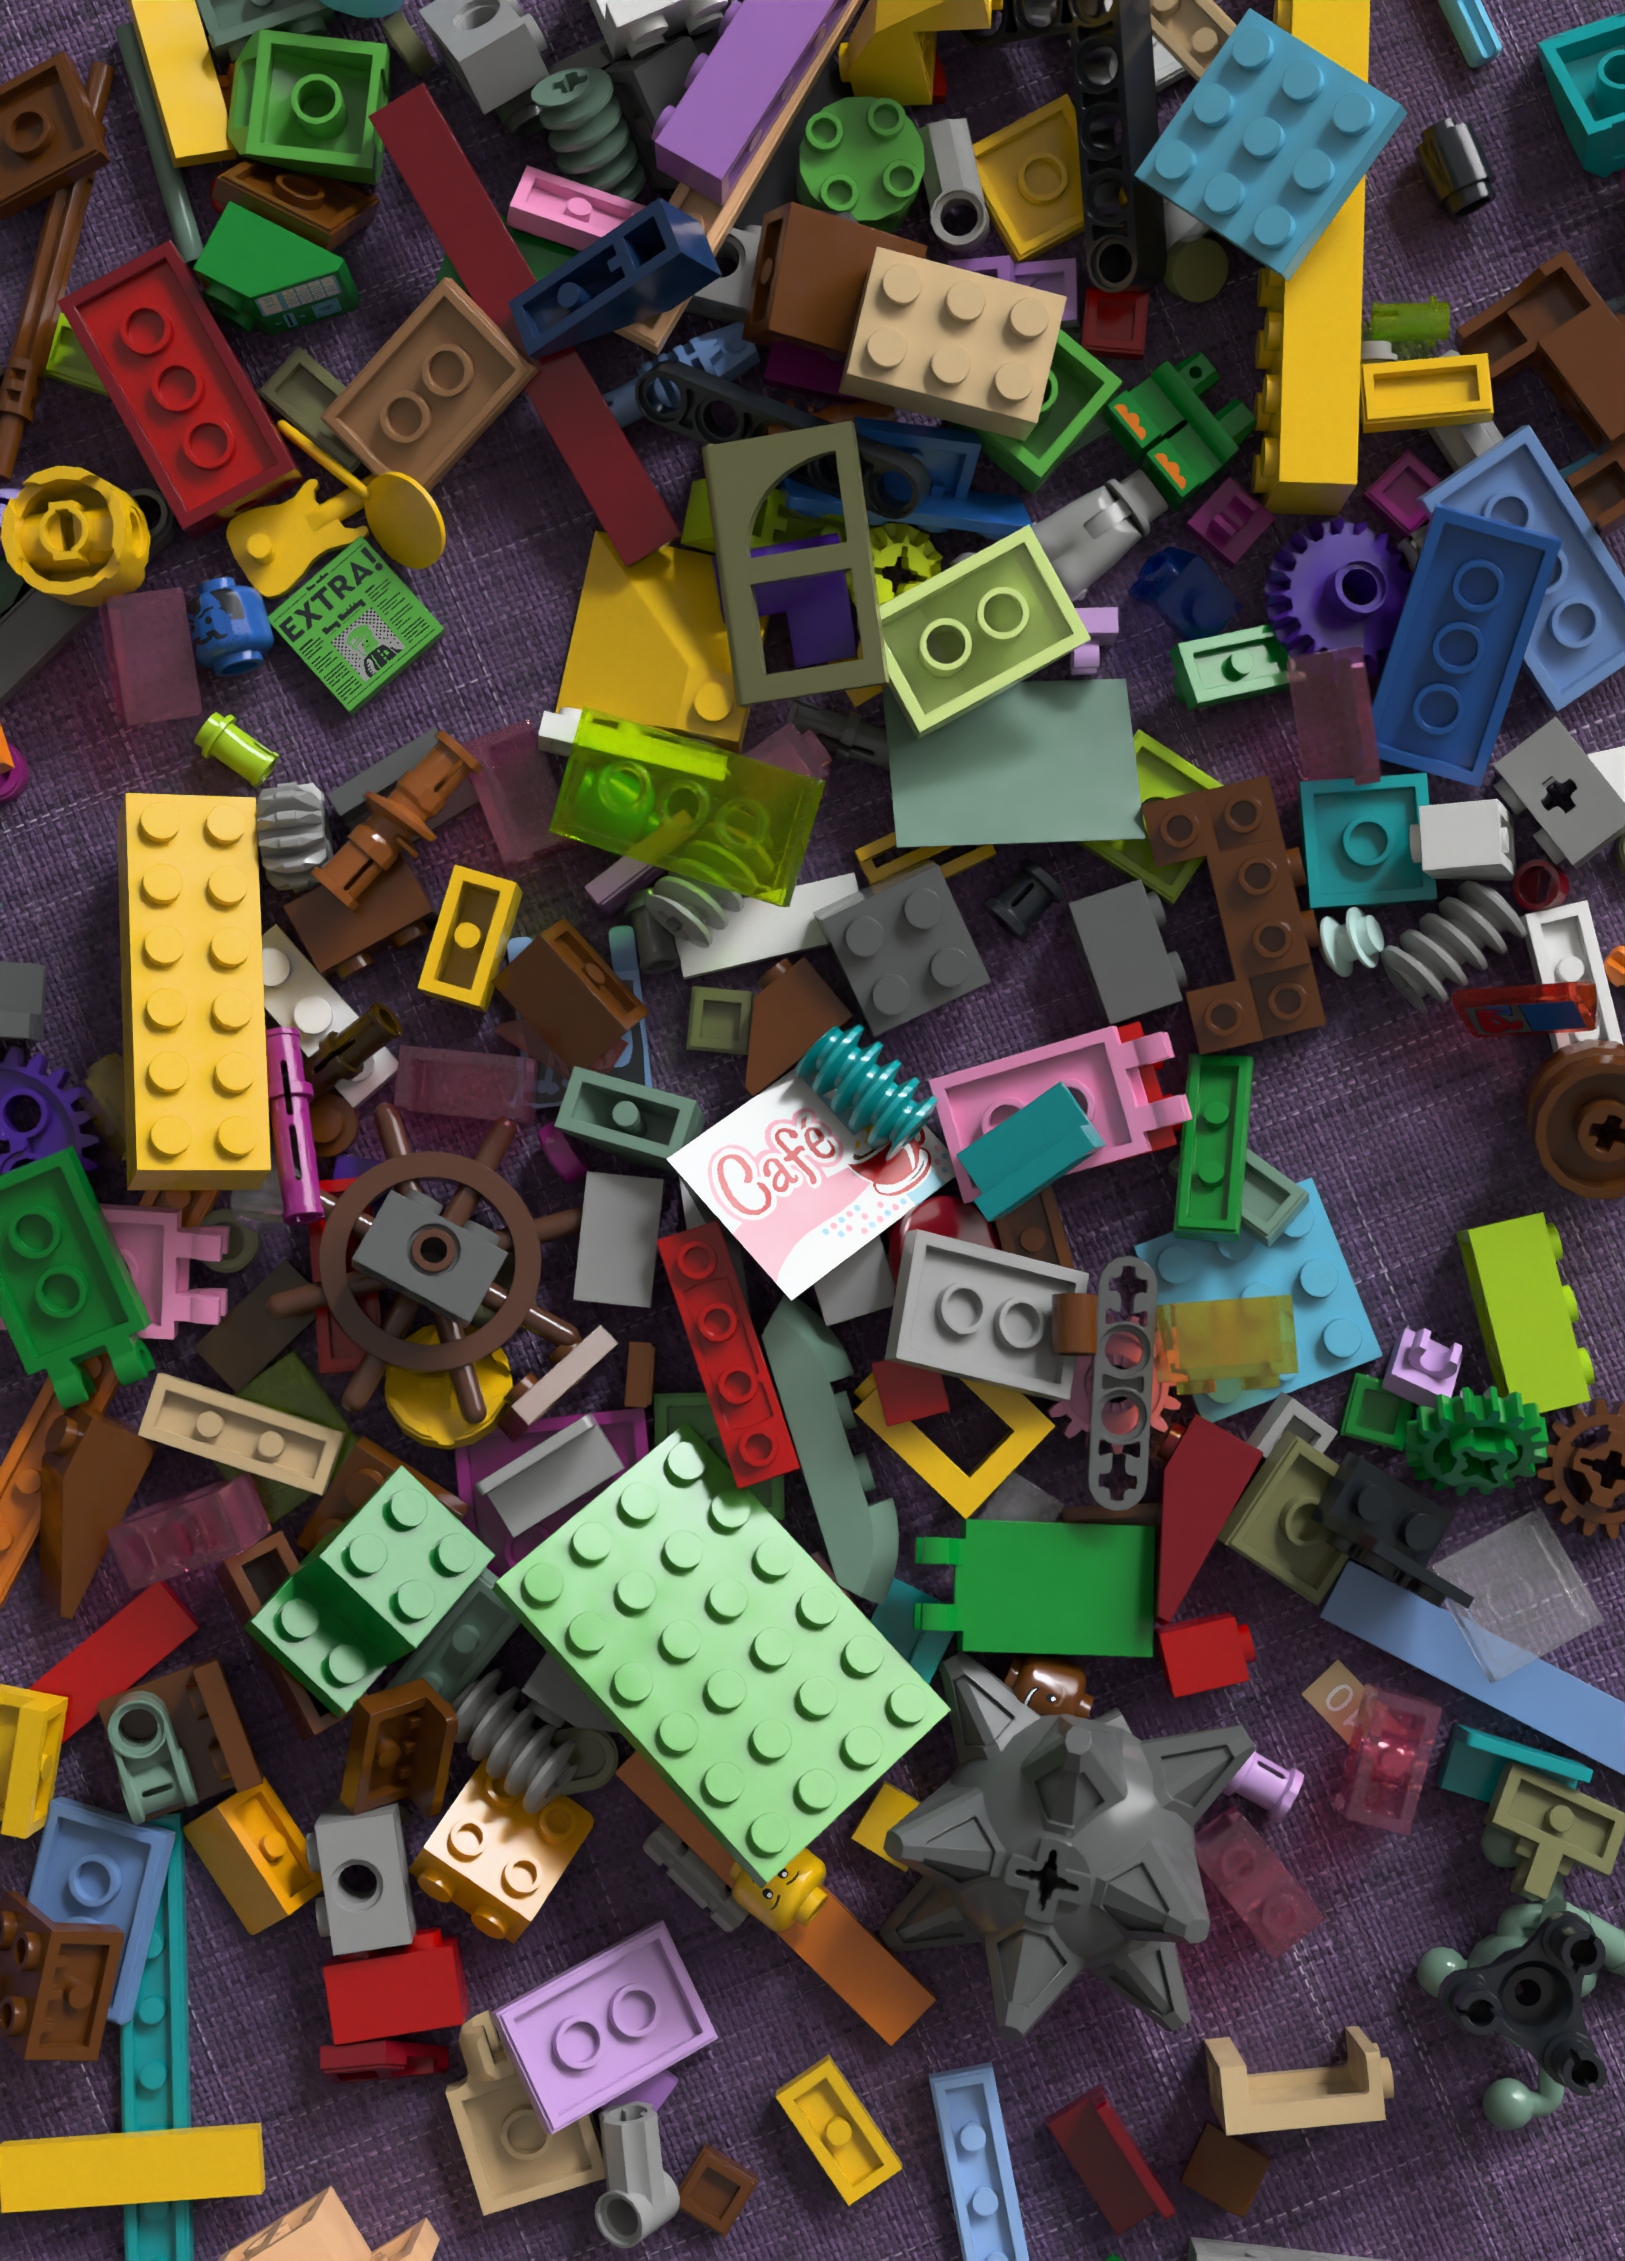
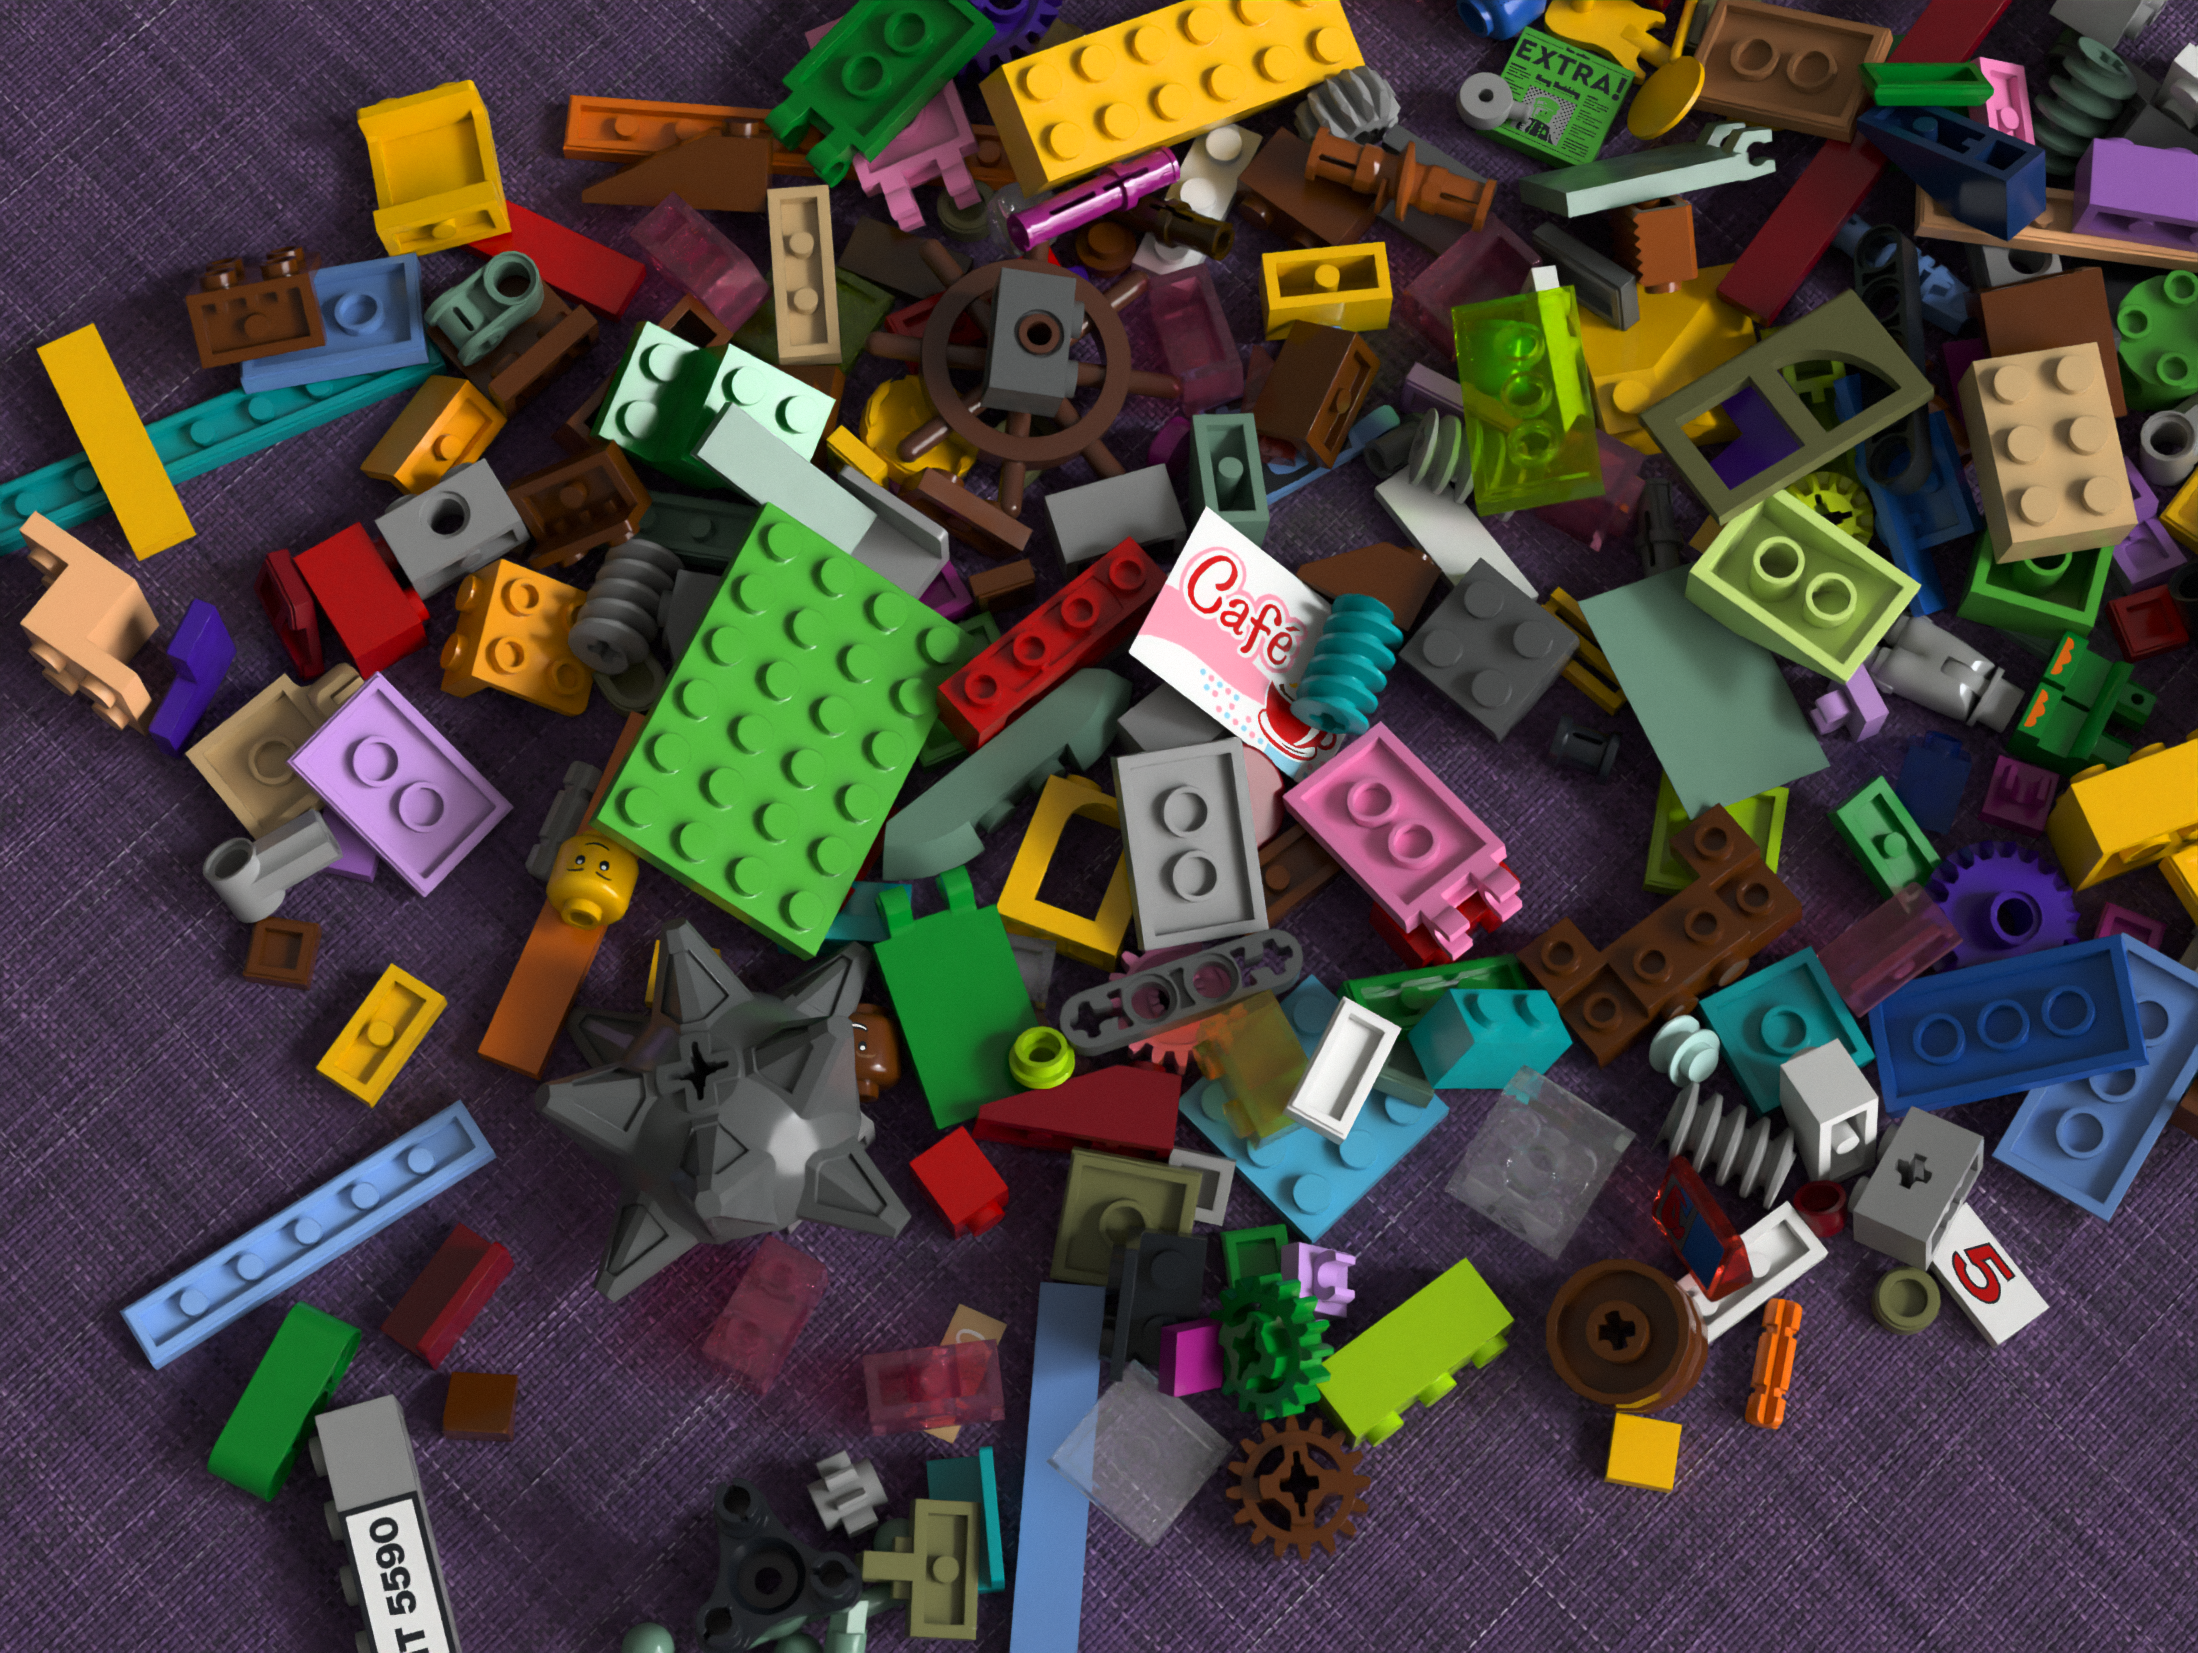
camera: 65 degrees right, 15 degrees down
(236, 749) = (1403, 33): lime pin -> none
(337, 678) = (1499, 105): none -> light grey piece
(408, 2180) = (200, 656): none -> dark purple tile
(467, 1466) = (846, 449): none -> yellow tile
(474, 1556) = (772, 471): none -> tile
(485, 577) = (1651, 172): none -> sand green tile
(521, 272) = (1925, 84): none -> green tile
(553, 604) = (1655, 242): none -> dark orange brick
(562, 684) = (1596, 279): none -> dark grey tile
(720, 1021) = (1347, 528): olive tile -> none
(908, 1392) = (1089, 808): red tile -> none
(1029, 1151) = (1353, 823): teal panel -> none
(1074, 1324) = (1216, 921): reddish brown hinge -> none
(1114, 1538) = (1041, 1045): none -> lime plate
(1125, 953) = (1579, 854): dark grey brick -> none
(1266, 1785) = (862, 1288): lavender bush -> none
(1268, 1273) = (1341, 1071): none -> white tile
(1279, 1119) = (1487, 1036): none -> teal brick
(1300, 2096) = (560, 1363): tan panel -> none
(1410, 1123) = (1539, 1161): none -> clear brick
(1446, 1873) = (847, 1494): none -> light grey gear
(1453, 1515) = (1190, 1357): none -> magenta tile

